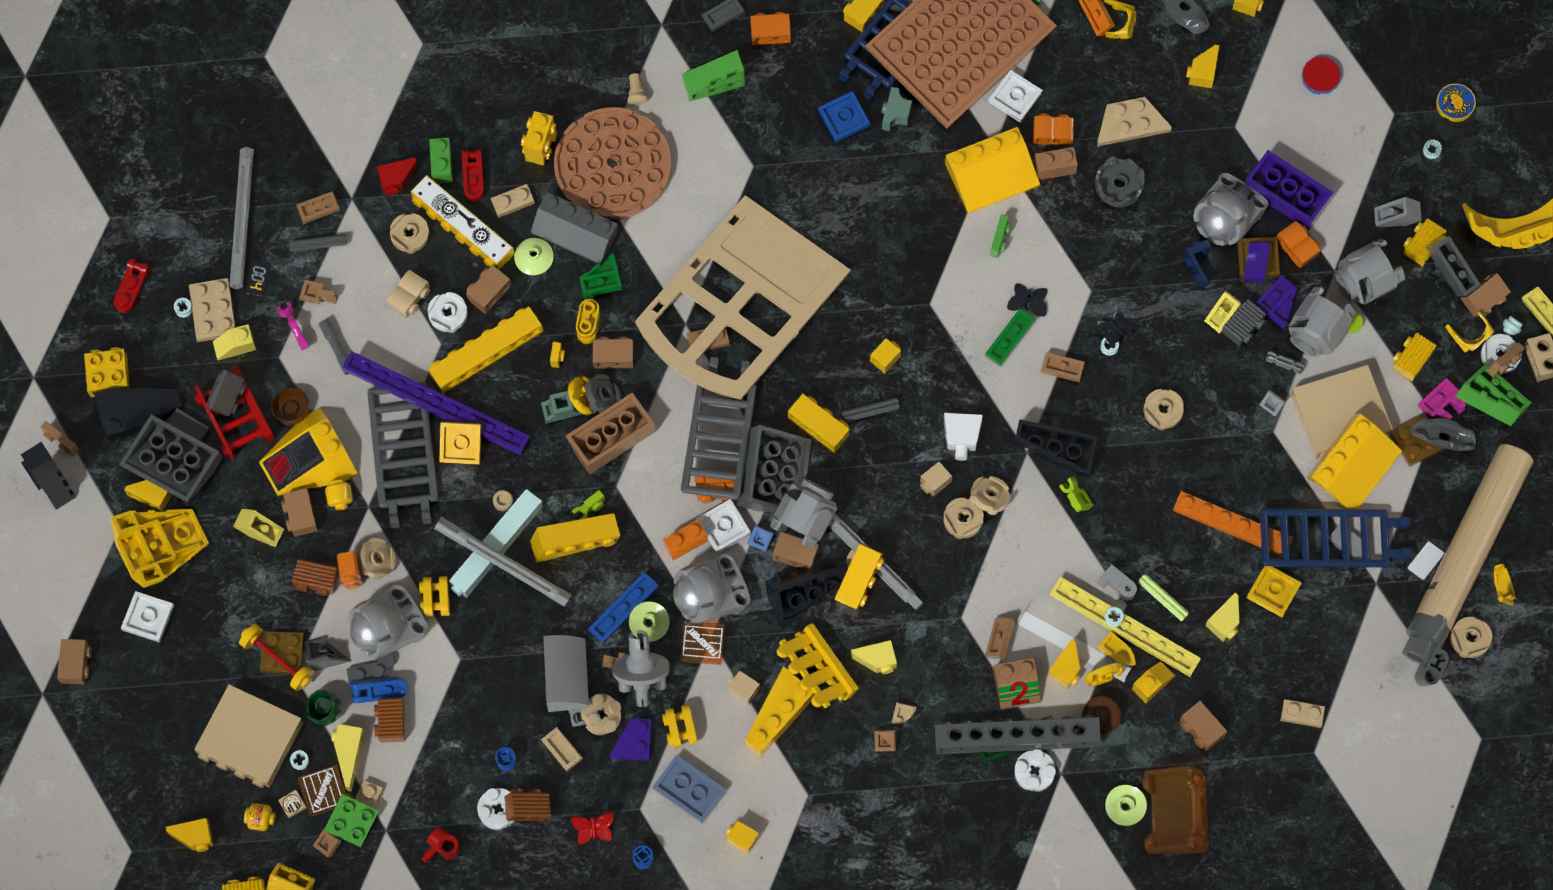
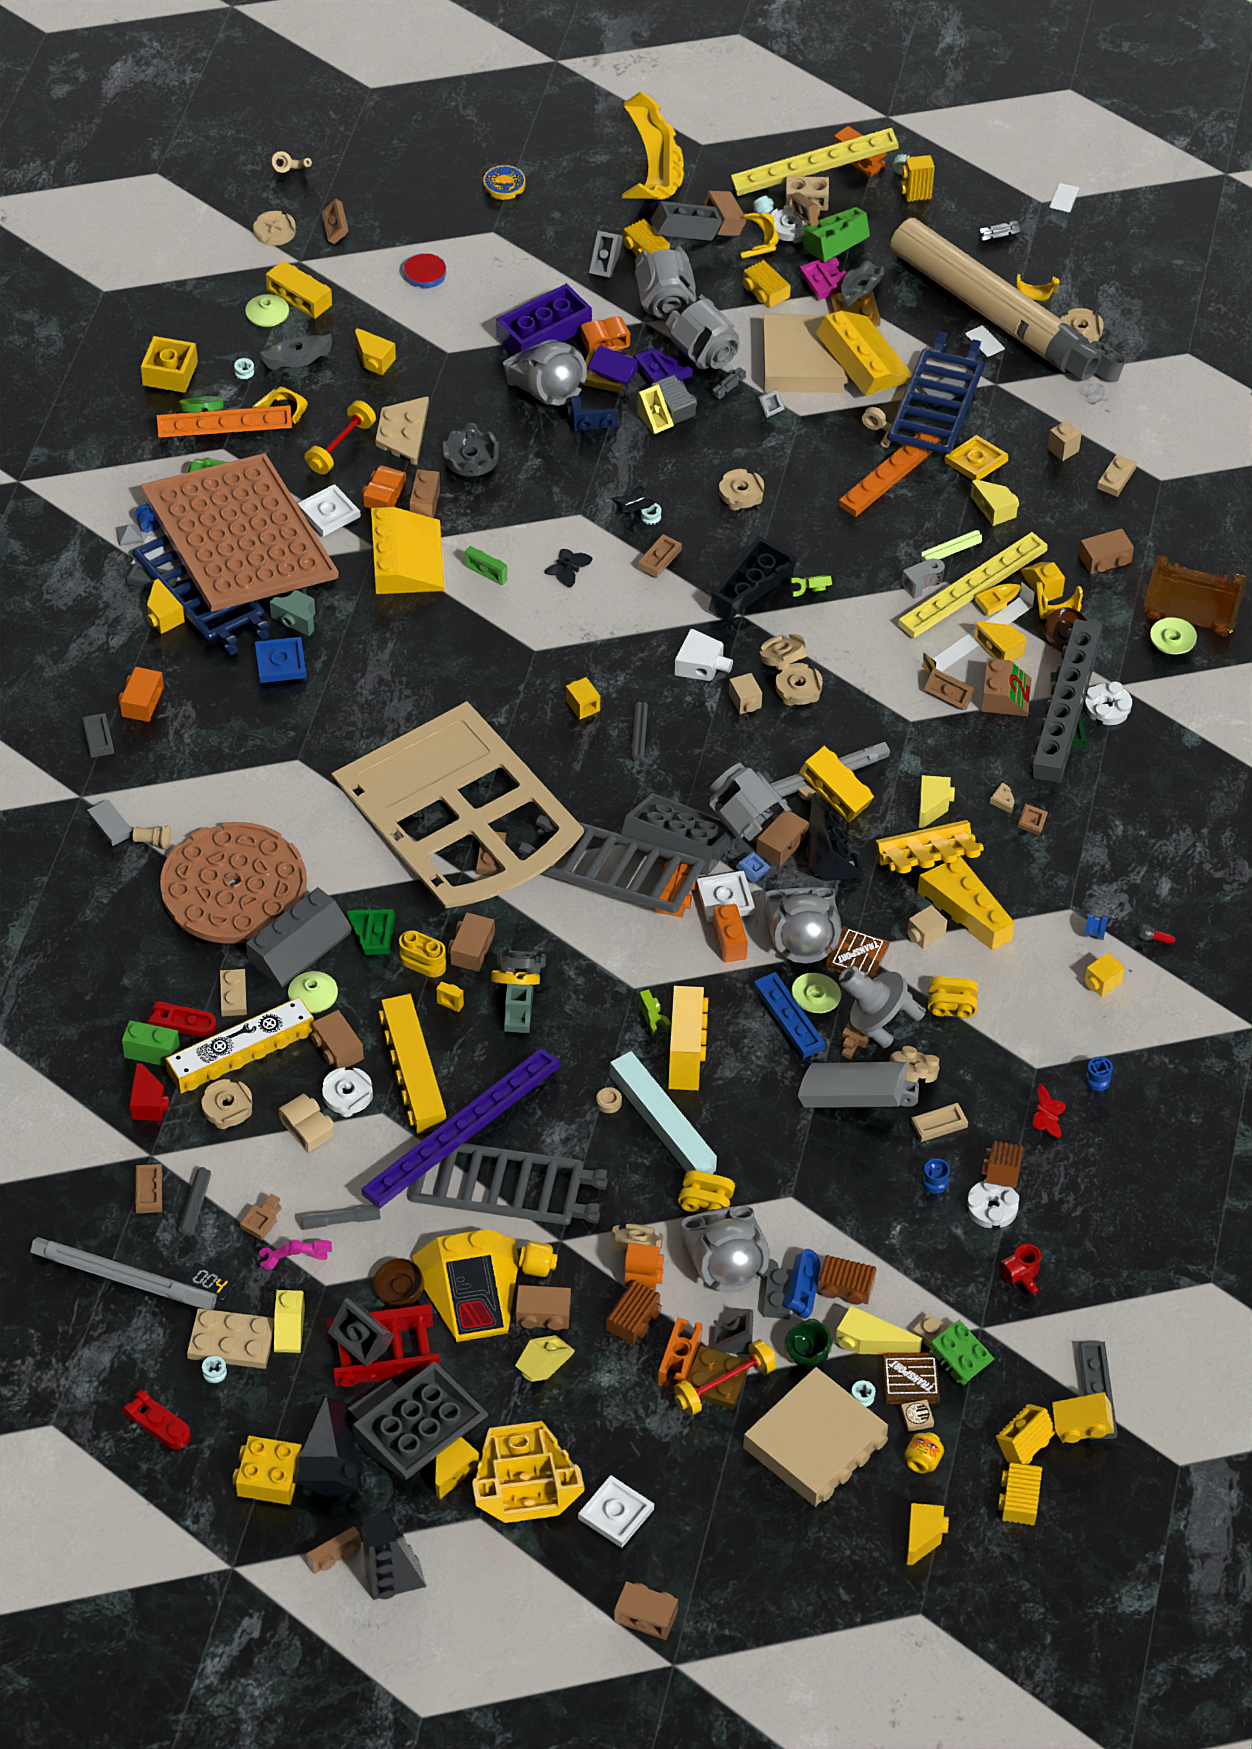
camera: 75 degrees left, 20 degrees down
(283, 614) = (680, 1345): none -> orange piece
(327, 843) = (980, 1389): medium nougat tile -> none
(460, 442) = (523, 1115): yellow plate -> none
(502, 561) = (692, 1106): light grey piece -> none
(539, 138) = (172, 935): yellow brick -> none
(611, 433) = (574, 964): medium nougat slope -> none
(634, 741) = (954, 1049): dark purple wing -> none
(641, 54) = (110, 822): none -> light grey tile
(689, 789) = (1030, 1010): sand blue plate -> none
(714, 77) = (177, 754): bright green wedge -> none
(789, 818) = (1096, 926): none -> blue wheel
(799, 861) = (1147, 933): none -> piece
(819, 422) = (637, 777): yellow brick -> none
(1010, 337) = (607, 589): green plate -> none
(1063, 69) = (320, 459): none -> yellow axle
(1104, 674) = (1025, 612): yellow tile -> none
(1118, 612) = (959, 579): light aqua bush -> none
(1128, 708) = (1045, 609): none -> yellow helmet
(1287, 493) = (875, 419): none -> tan plate
(1320, 658) = (1064, 440): none -> tan brick
(1426, 149) = (550, 217): light aqua bush -> none

